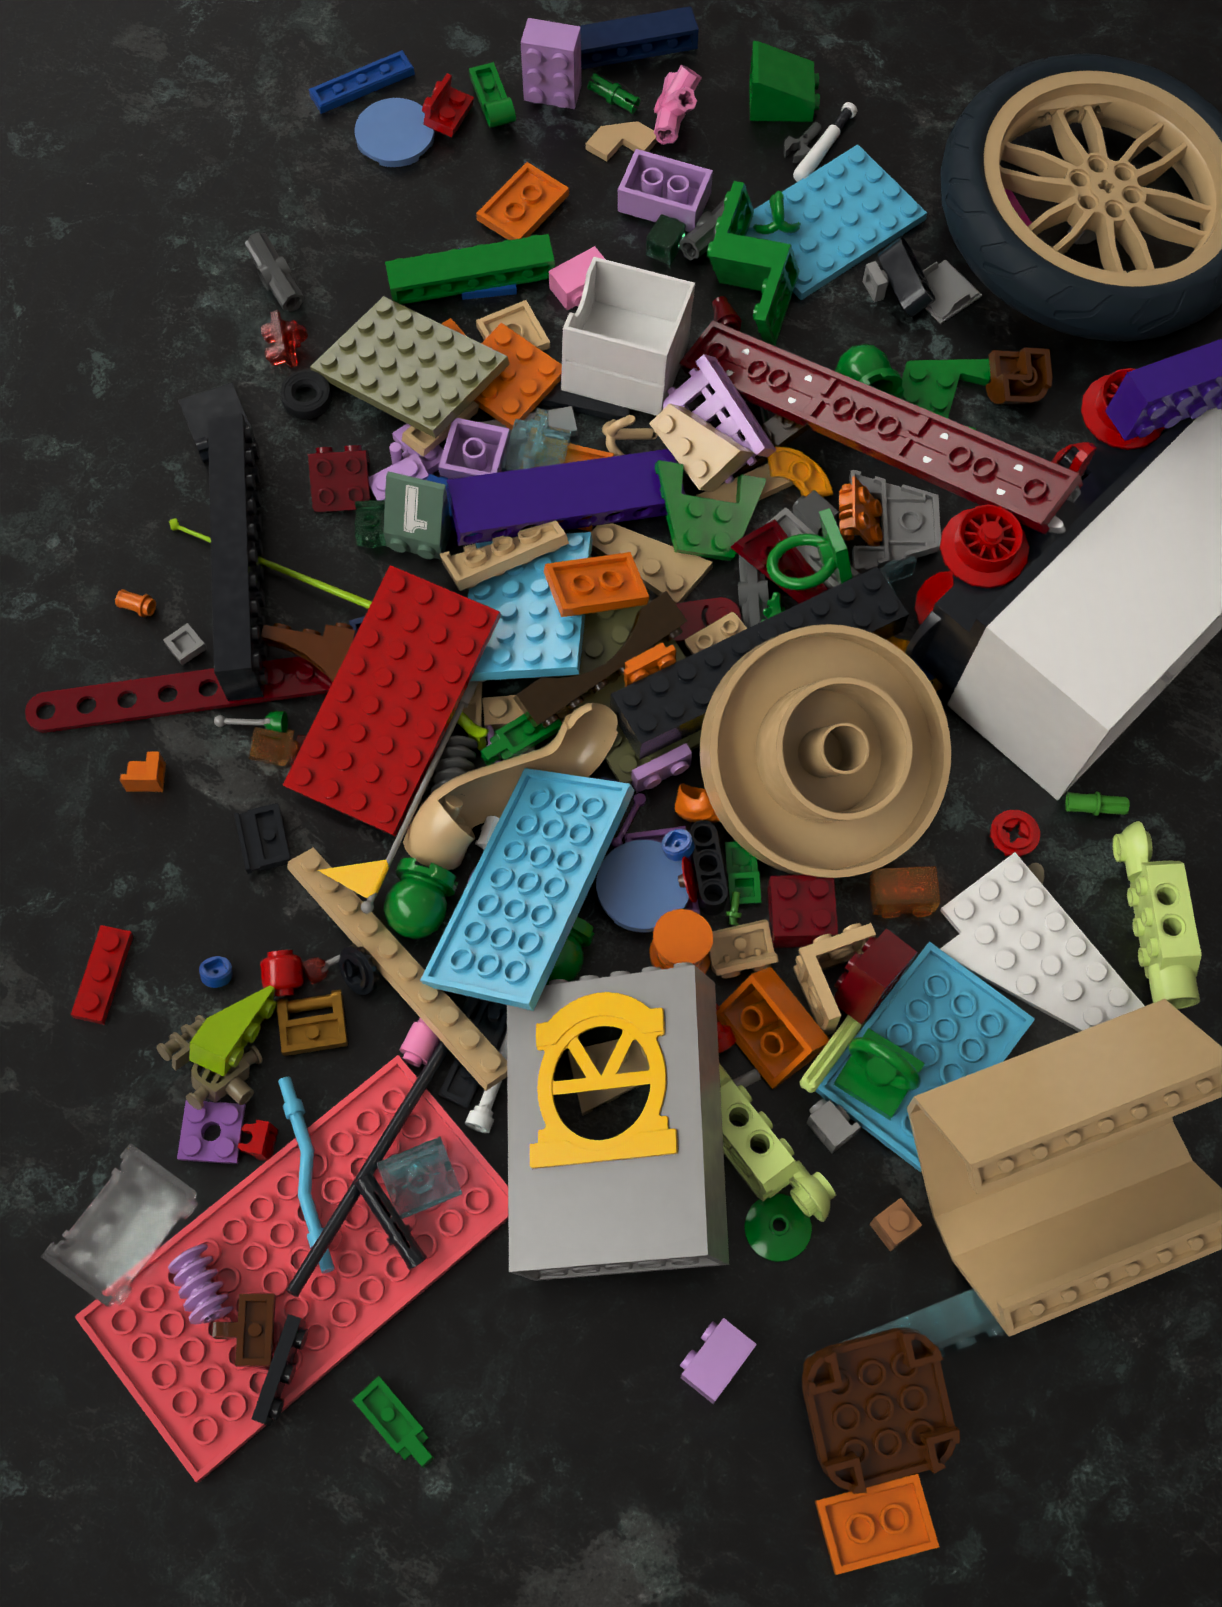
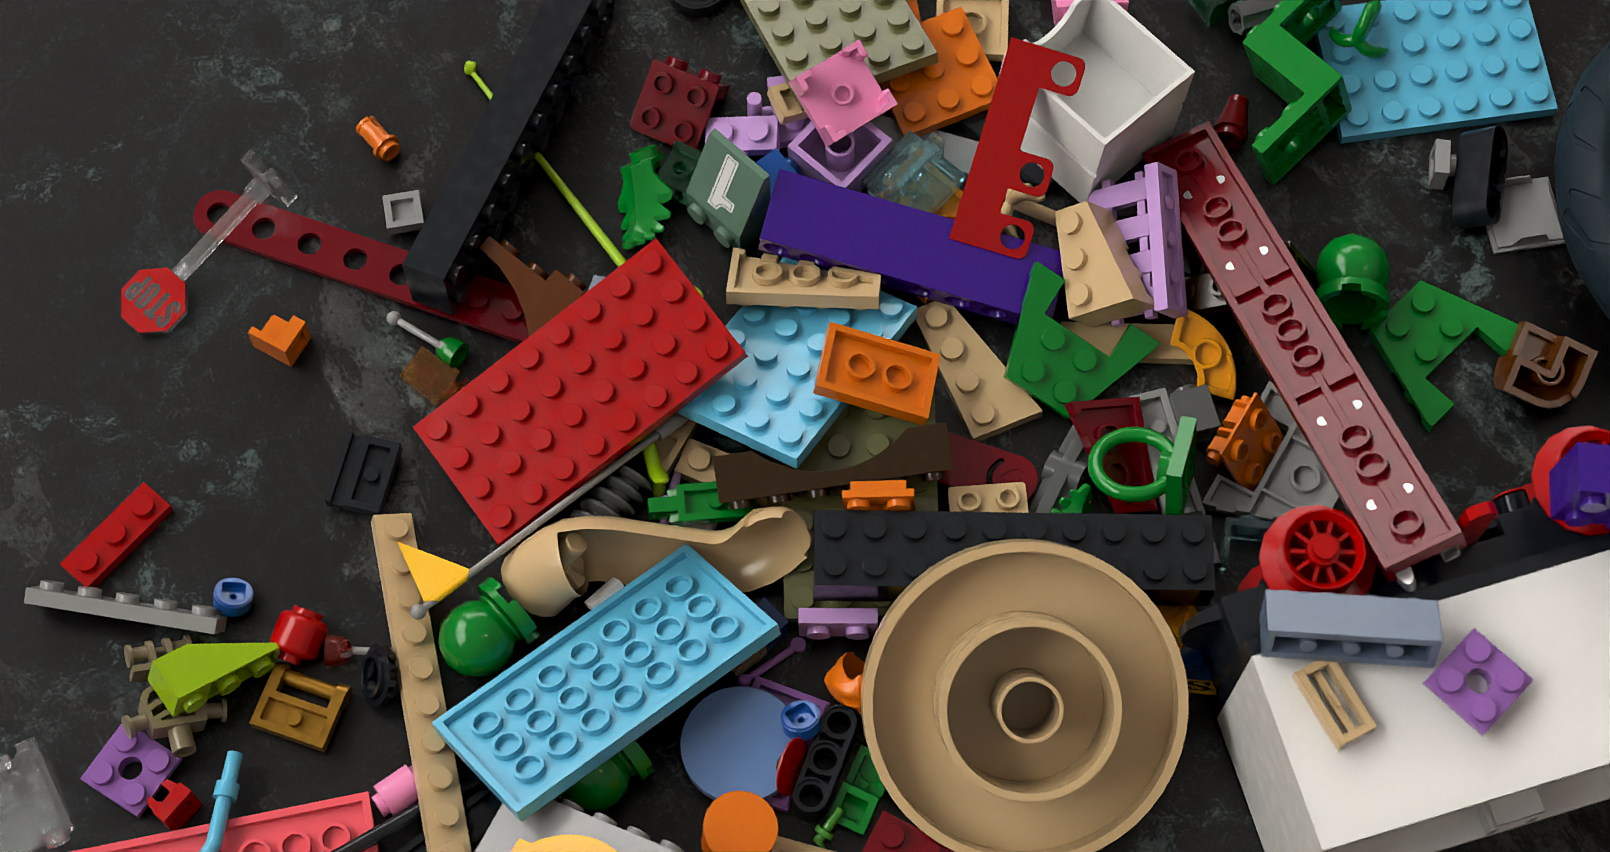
camera: 30 degrees right, 0 degrees up
(35, 791) = (159, 297): none -> clear piece
(139, 1019) = (126, 607): none -> light grey plate
(353, 552) = (643, 197): none -> green plant
(459, 411) = (841, 93): none -> bright pink panel
(594, 398) = (998, 152): none -> red piece
(1043, 573) = (1350, 628): none -> sand blue brick
(1056, 633) = (1352, 734): none -> tan tile
(1155, 557) = (1503, 679): none -> medium lavender piece

